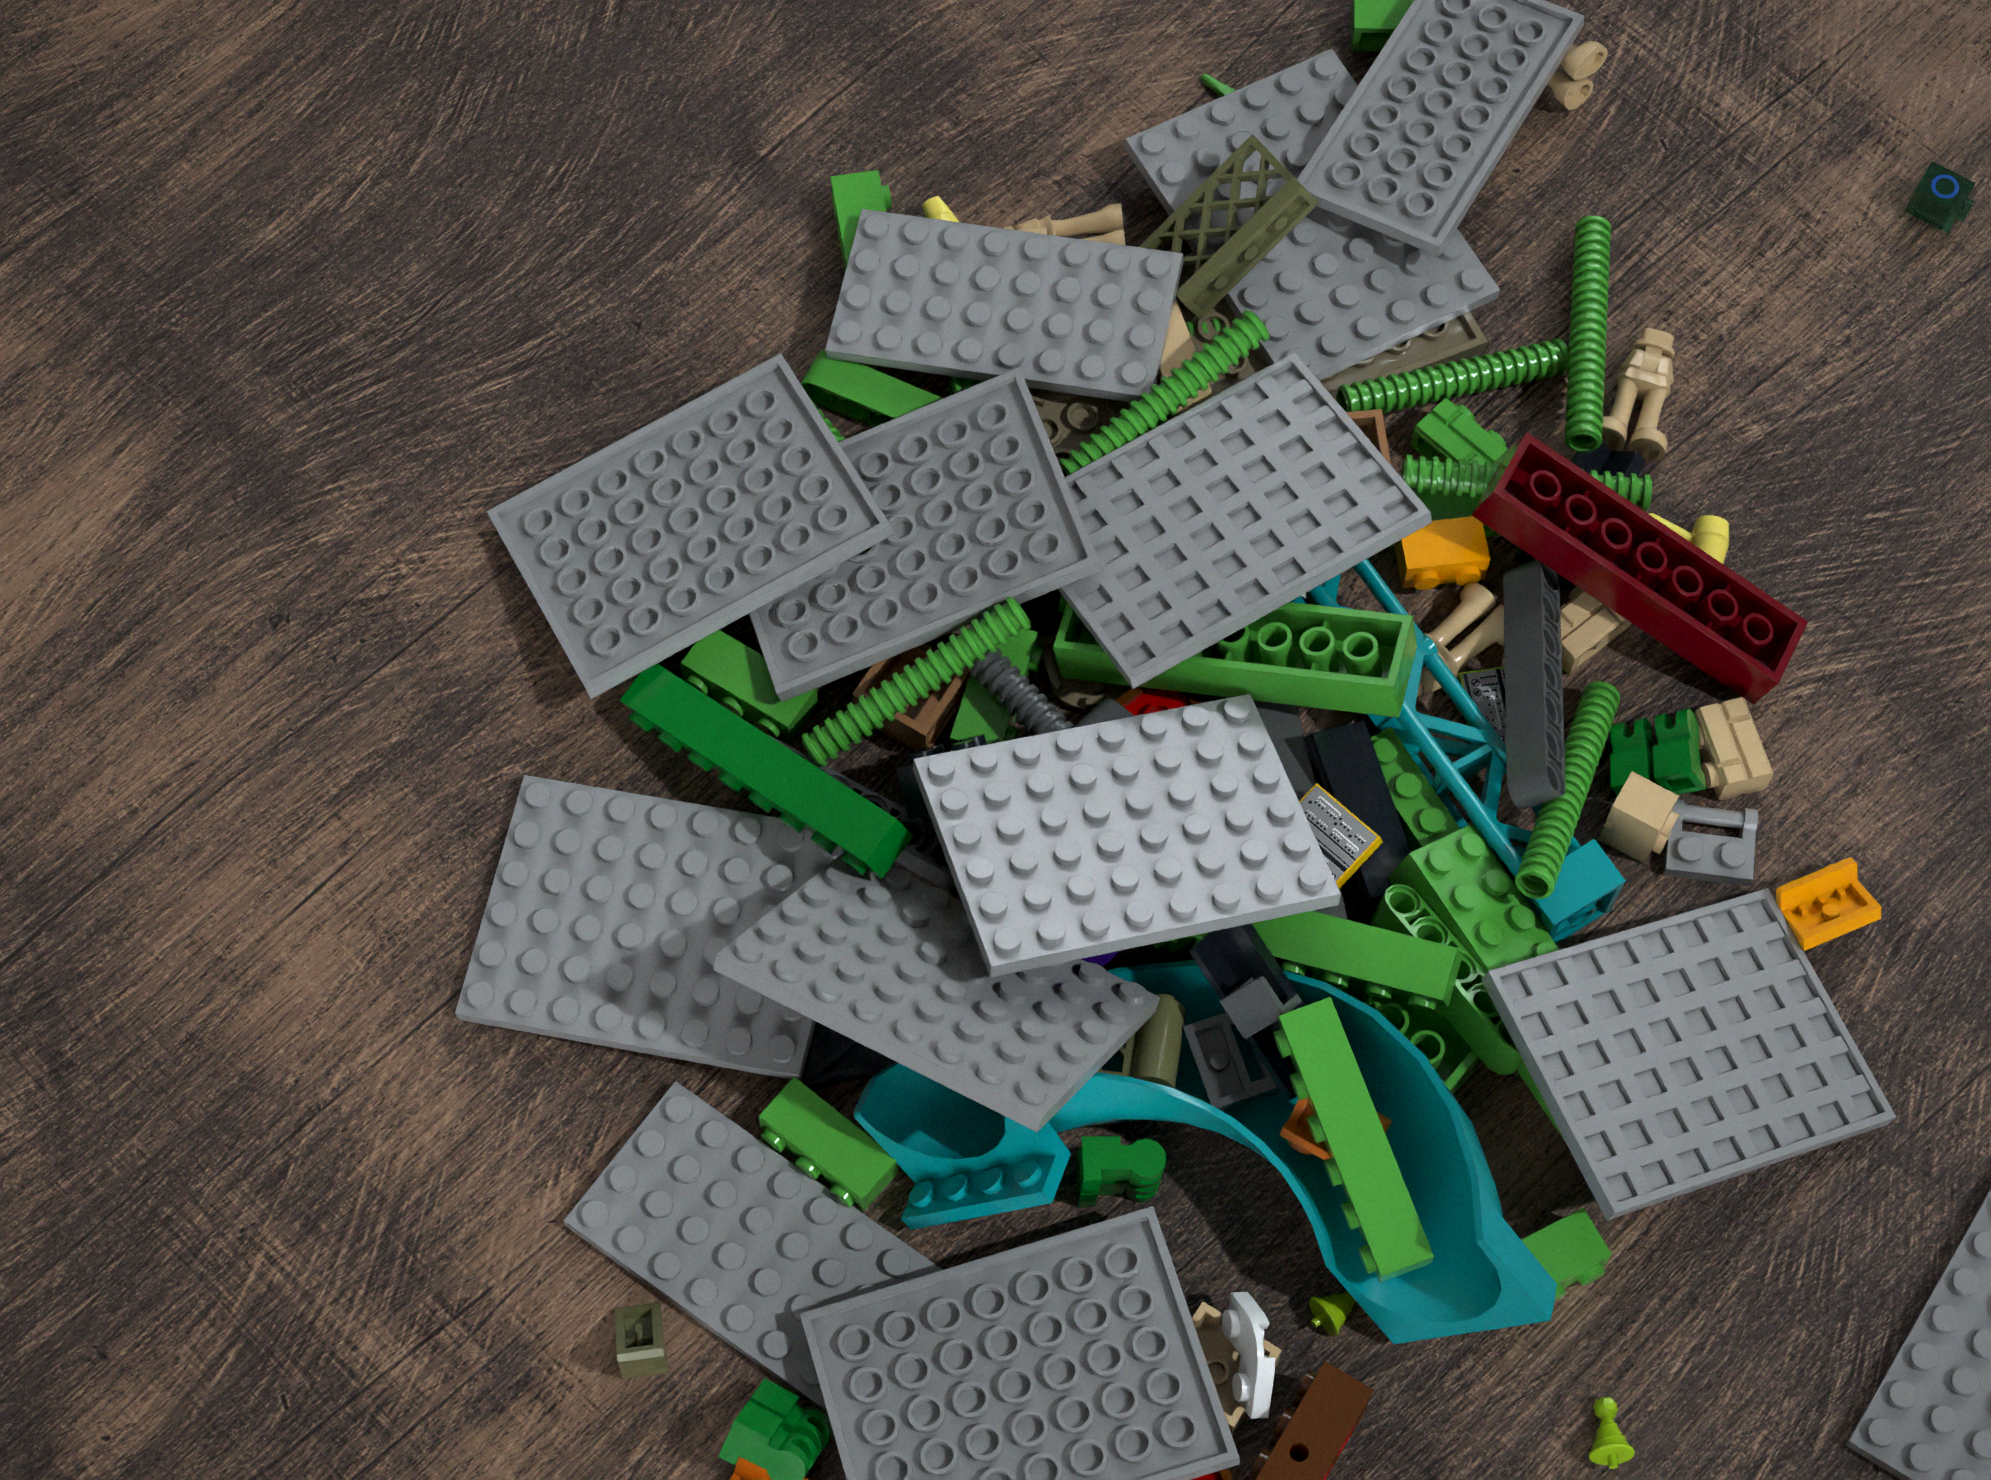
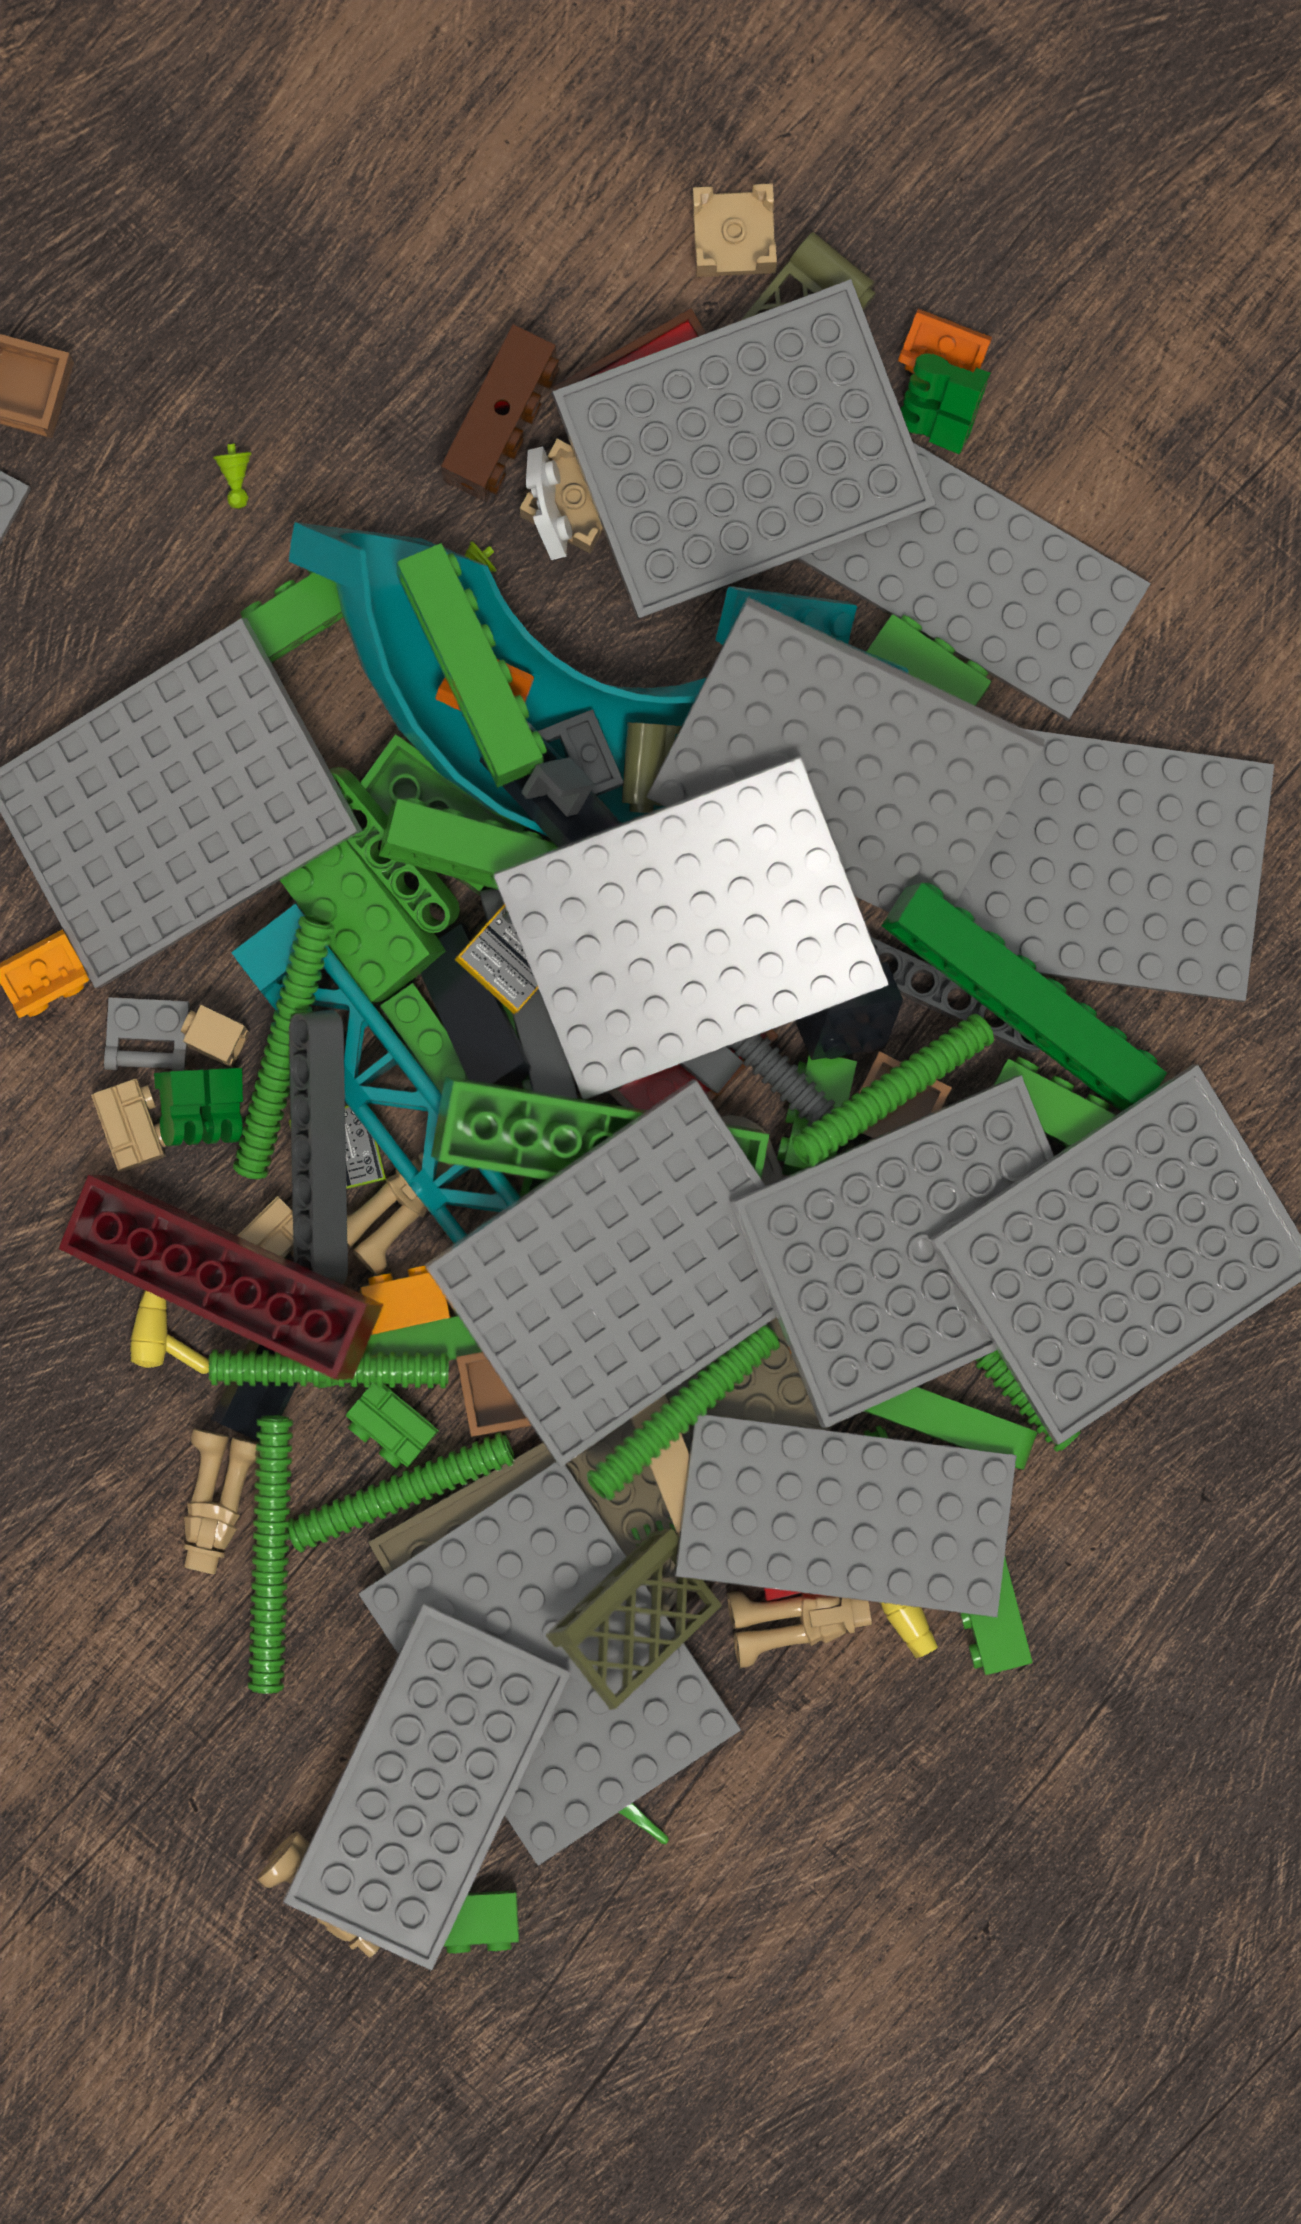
camera: 175 degrees right, 20 degrees up
(640, 1341) = (1070, 483): olive slope -> none
(1117, 1169) = (678, 660): green legs -> none

